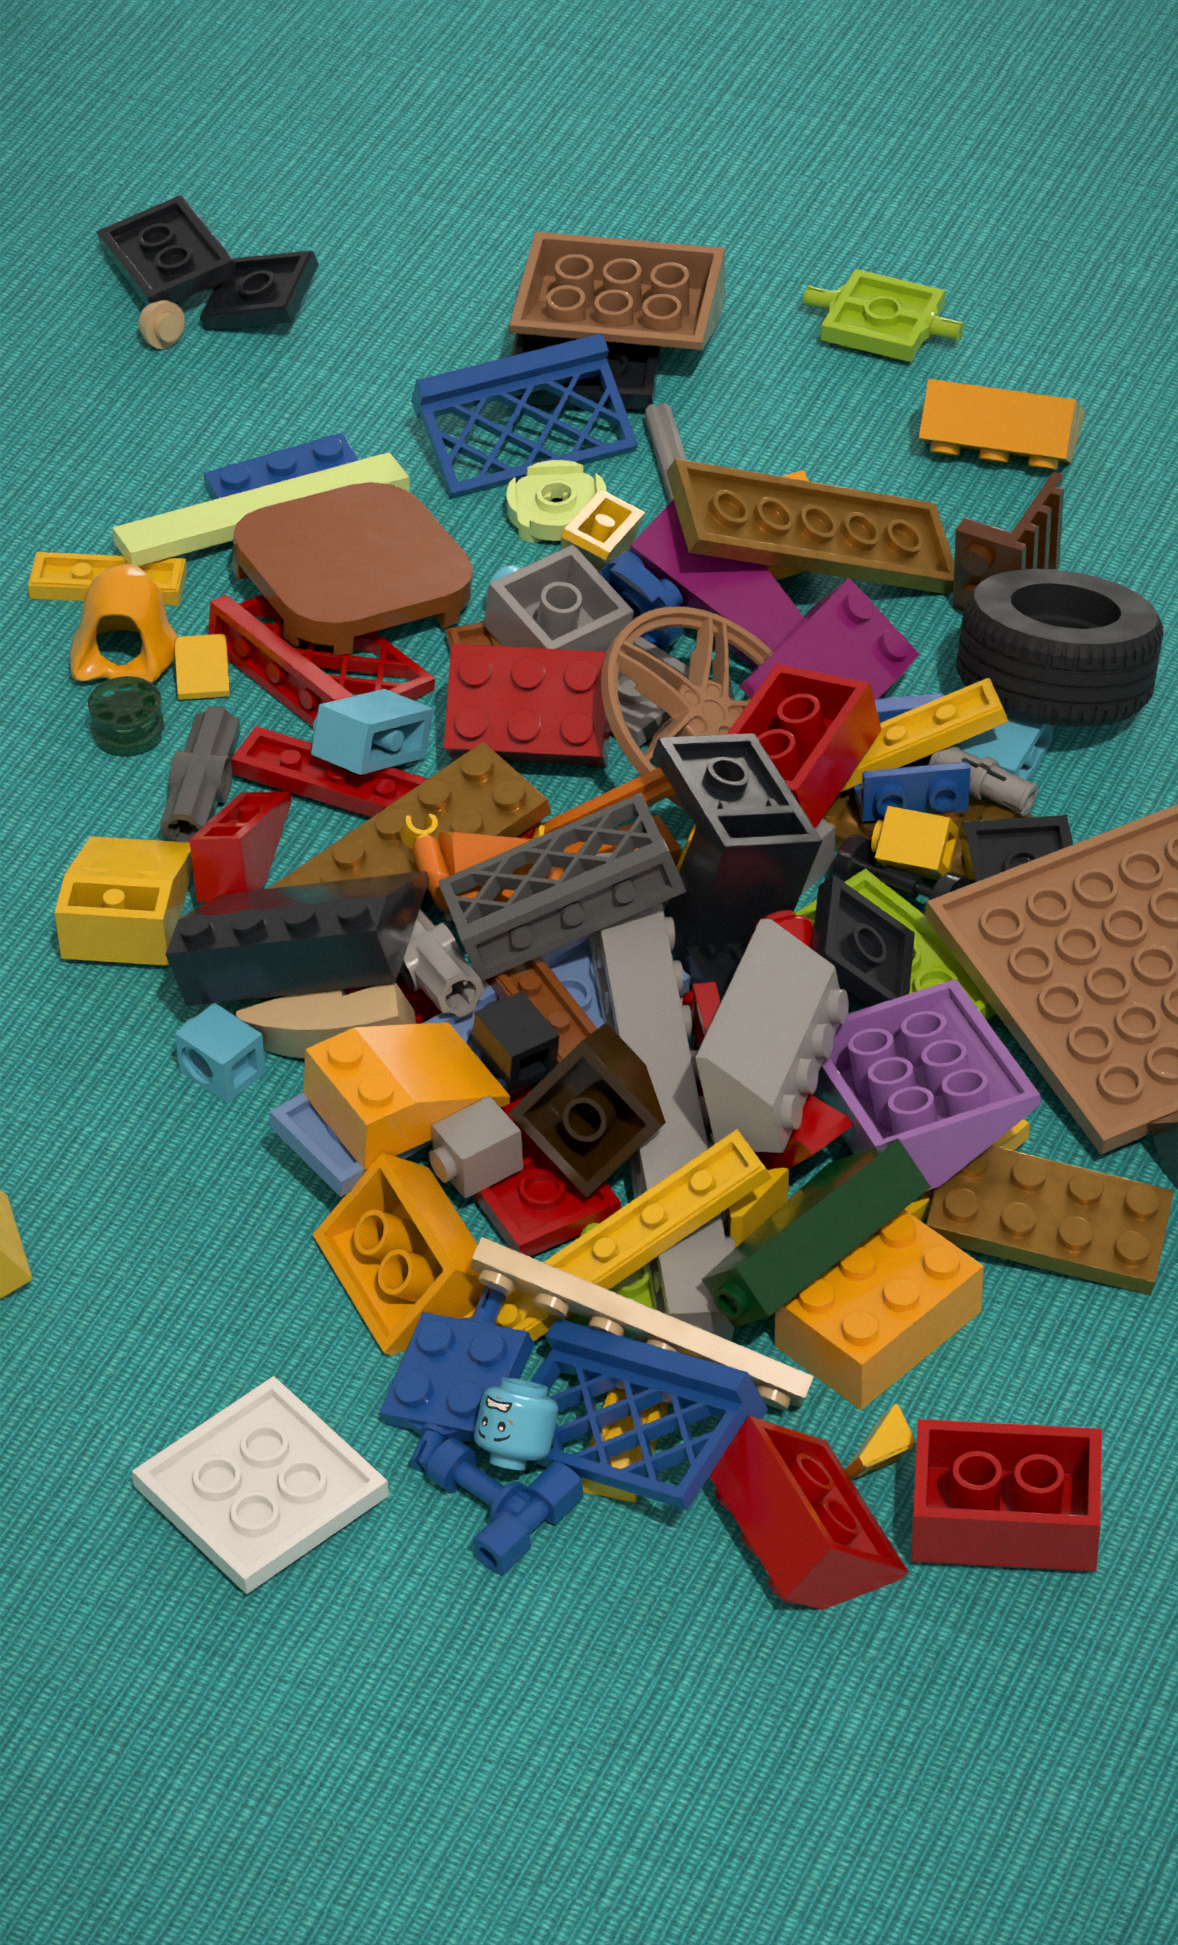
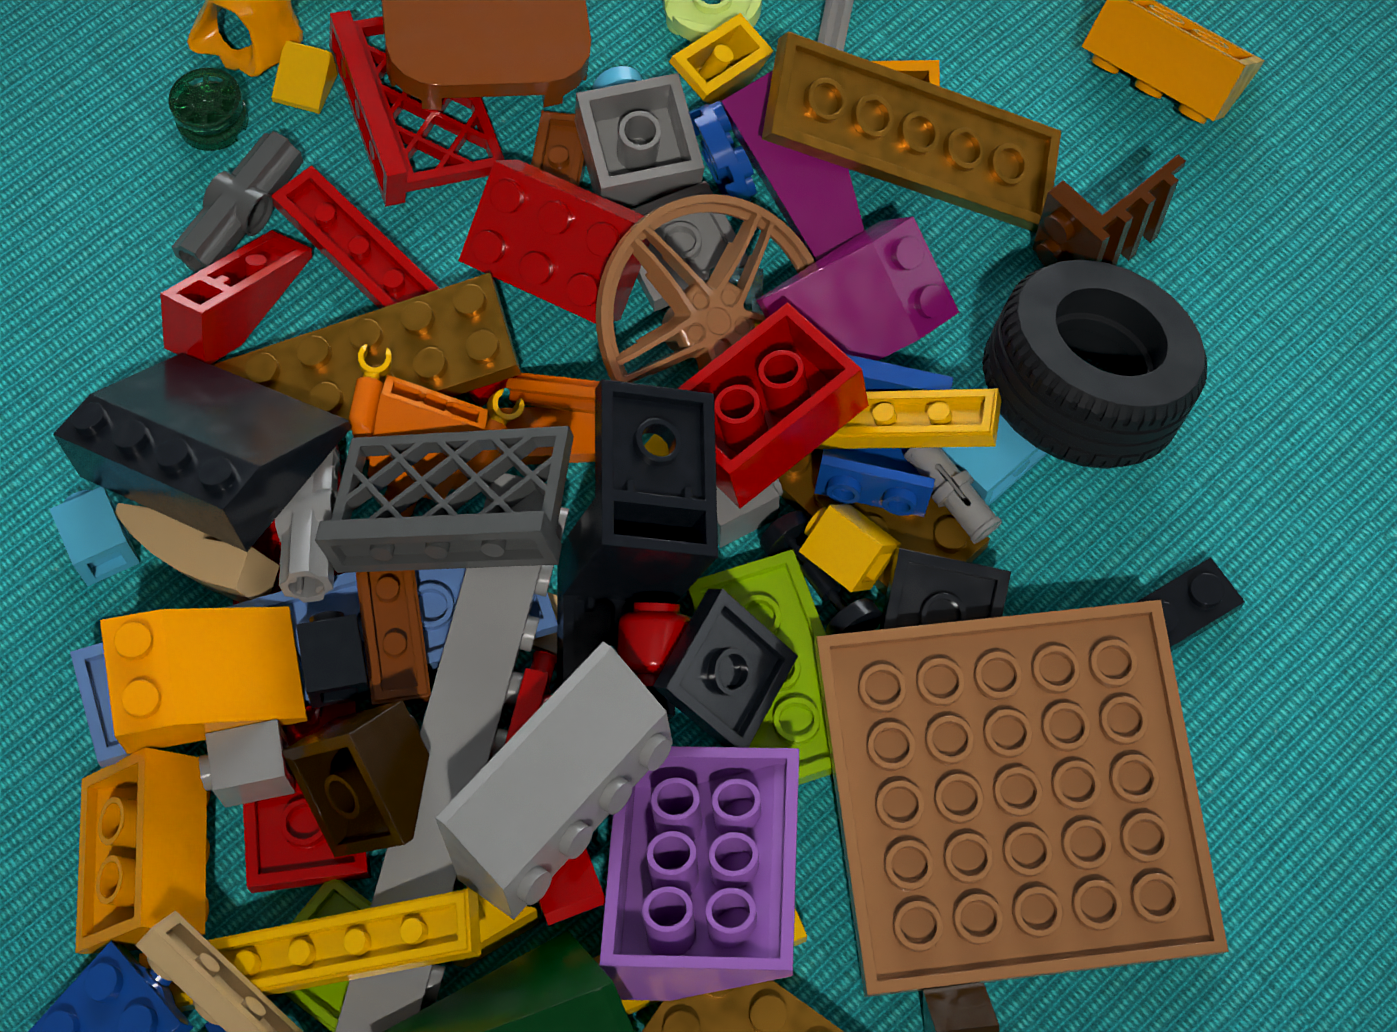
camera: 20 degrees right, 20 degrees up
(122, 900) = (94, 317): yellow slope -> none
(371, 731) = (402, 216): medium azure brick -> none

